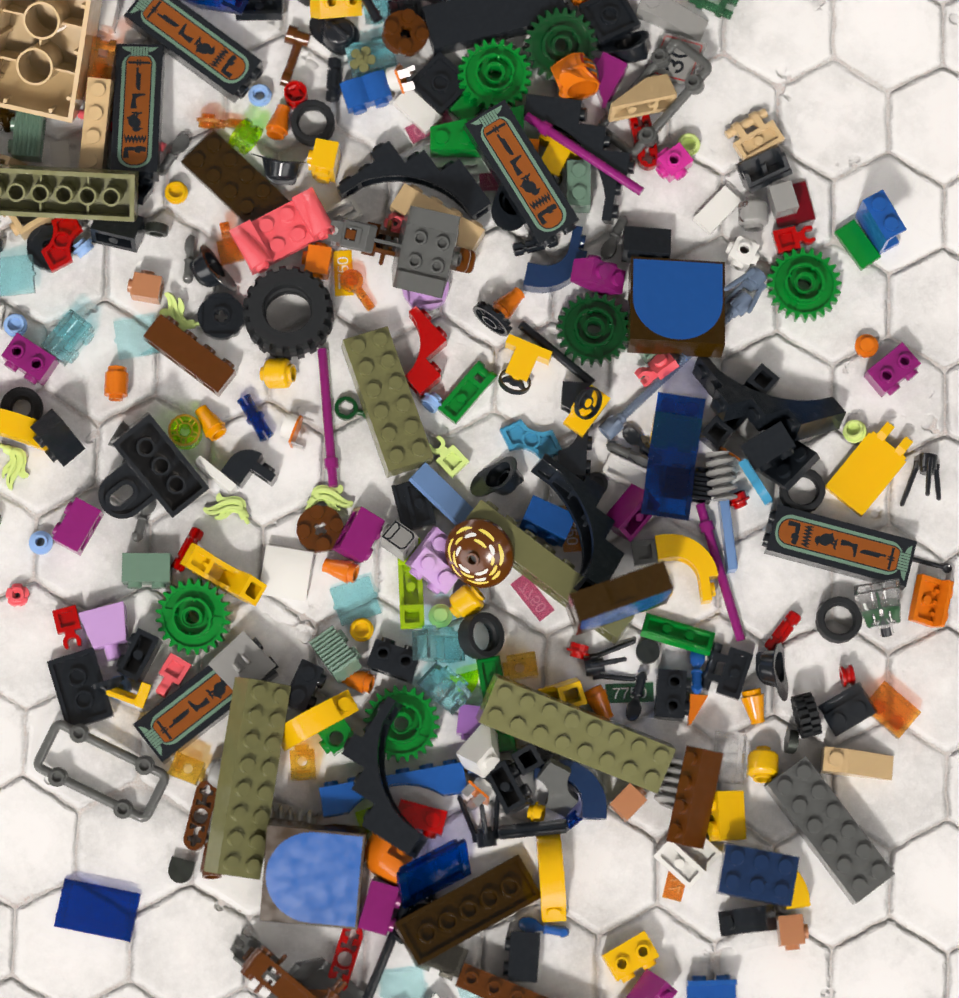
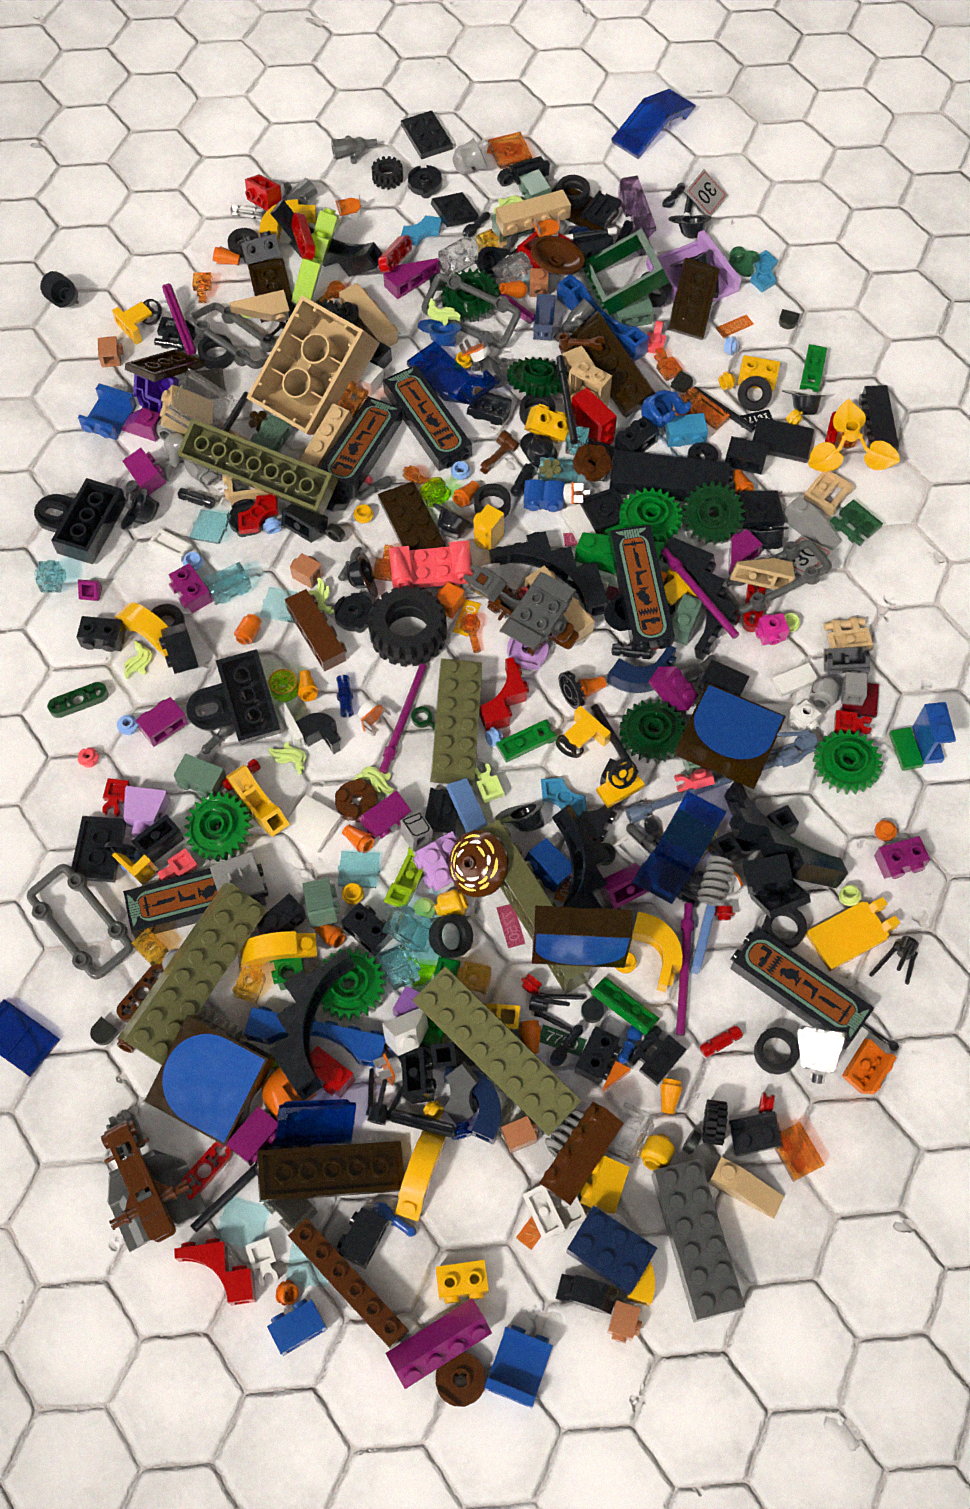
camera: 25 degrees right, 15 degrees down
(278, 373) = (379, 668): yellow head -> none
(293, 91) = (487, 475): red wheel -> none
(576, 76) = (717, 536): orange piece -> none
(756, 482) = (745, 901): dark azure tile -> none
(771, 670) = (698, 1070): black piece -> none

